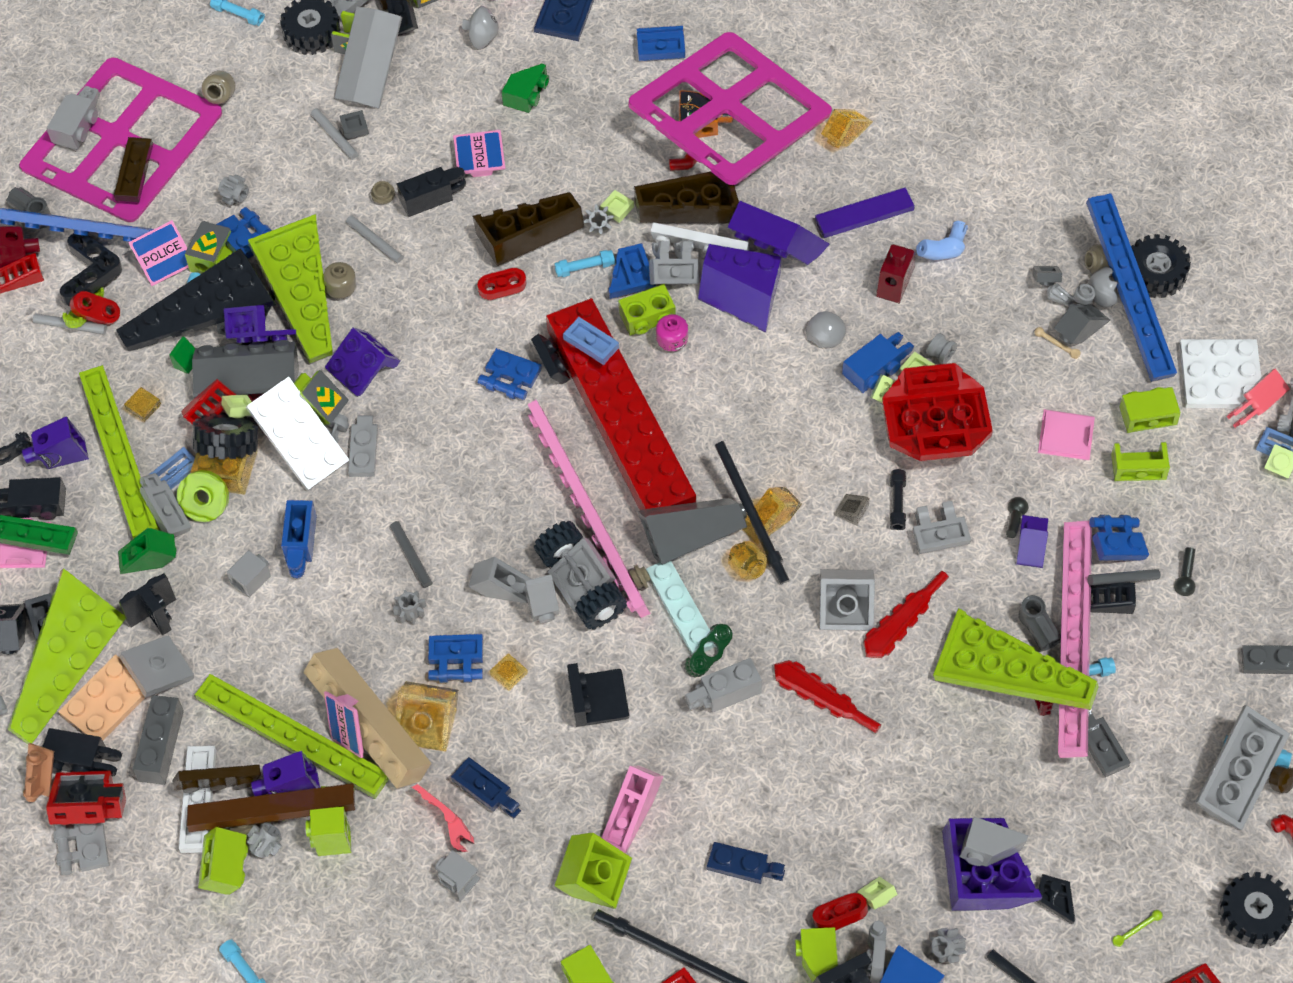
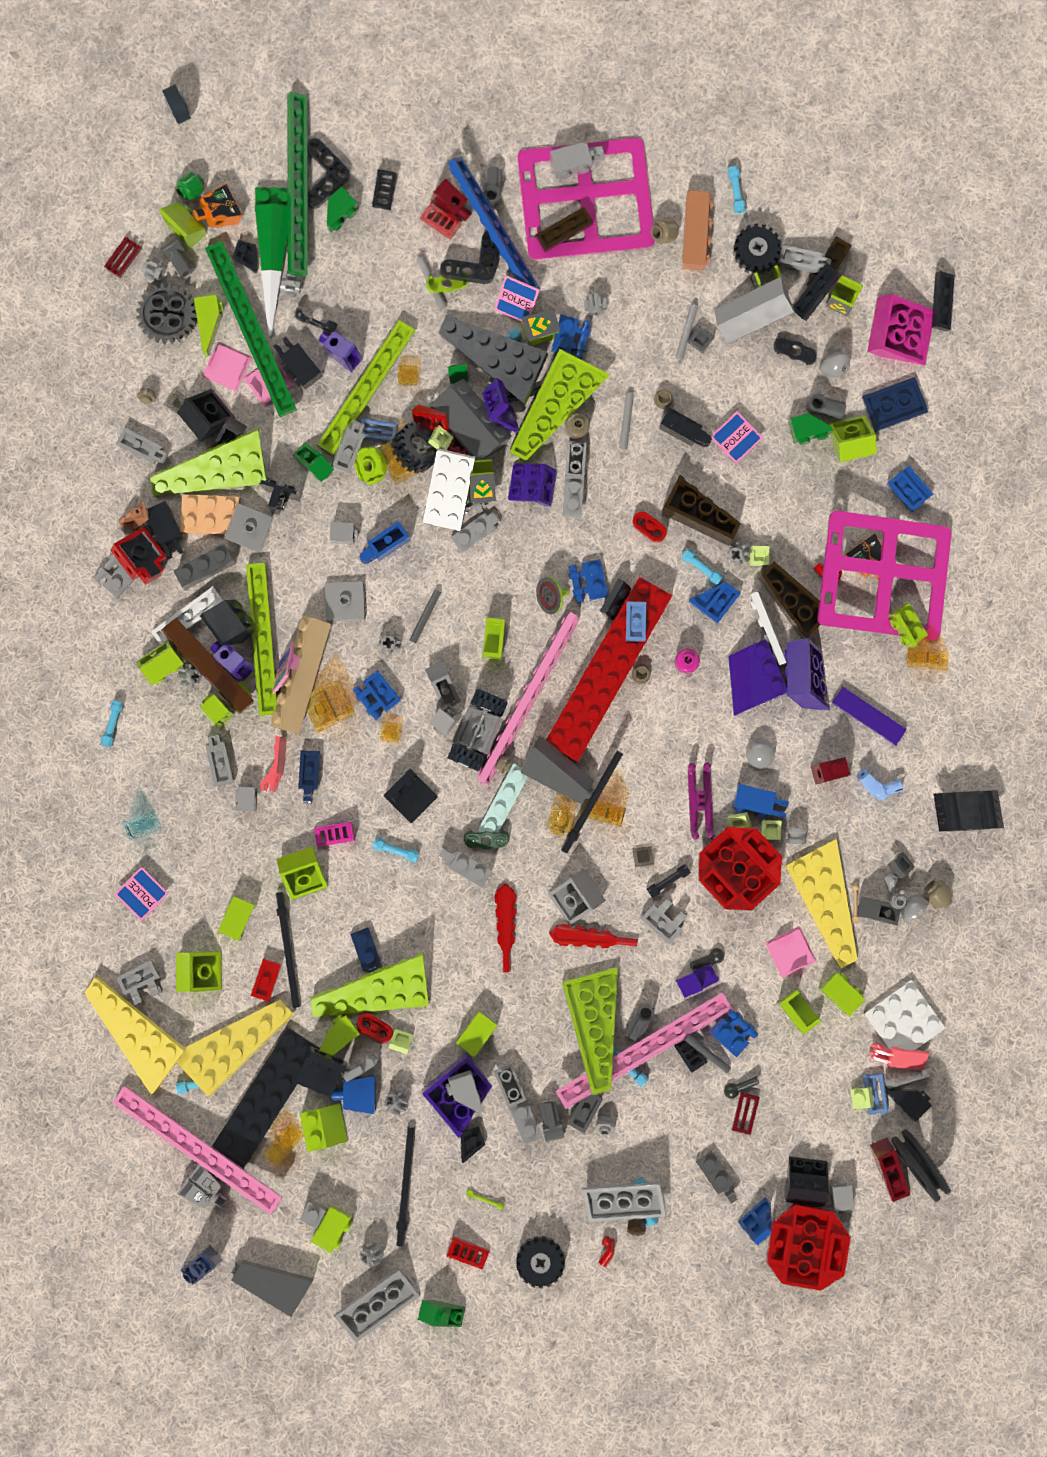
camera: 50 degrees right, 25 degrees up
(96, 308) = (448, 293): red plate -> none
(216, 778) = (187, 610): dark brown plate -> none
(243, 63) = (696, 230): none -> nougat brick
(243, 747) = (228, 622): none -> black slope
(324, 623) = (344, 601): none -> light grey plate
(389, 876) = (219, 761): none -> light grey hinge
(391, 319) = (574, 479): none -> light grey slope
(425, 60) = (784, 345): none -> black piece
(493, 413) = (550, 595): none -> shield
(493, 498) = (493, 638): none -> lime panel
(515, 61) = (828, 406): none -> dark grey piece
(571, 57) = (853, 438): none -> lime slope
(573, 792) = (350, 833): none -> dark pink slope
(631, 806) = (355, 866): bright pink slope -> none
(644, 306) = (696, 628): lime brick -> none
(650, 386) = (641, 674): none -> dark tan plate
(666, 740) = (379, 844): none -> medium azure bar
(673, 271) = (734, 631): light grey plate -> none
(798, 118) = (908, 625): none -> lime bracket
(800, 870) = (383, 989): none -> lime wing
(832, 415) = (700, 801): none -> magenta piece
(927, 802) = (476, 1033): none -> lime panel
(1017, 362) = (824, 893): none -> light yellow wing
(1036, 179) = (968, 811): none -> black slope
(1045, 813) = (518, 1104): none -> light grey slope
(1098, 793) = (551, 1124): none -> dark grey piece
(1131, 287) = (924, 927): blue plate -> none
(1135, 737) = (605, 1125): none -> light grey plate
(1166, 257) = (966, 937): black wheel -> none
(1219, 598) = (753, 1113): none -> dark red tile

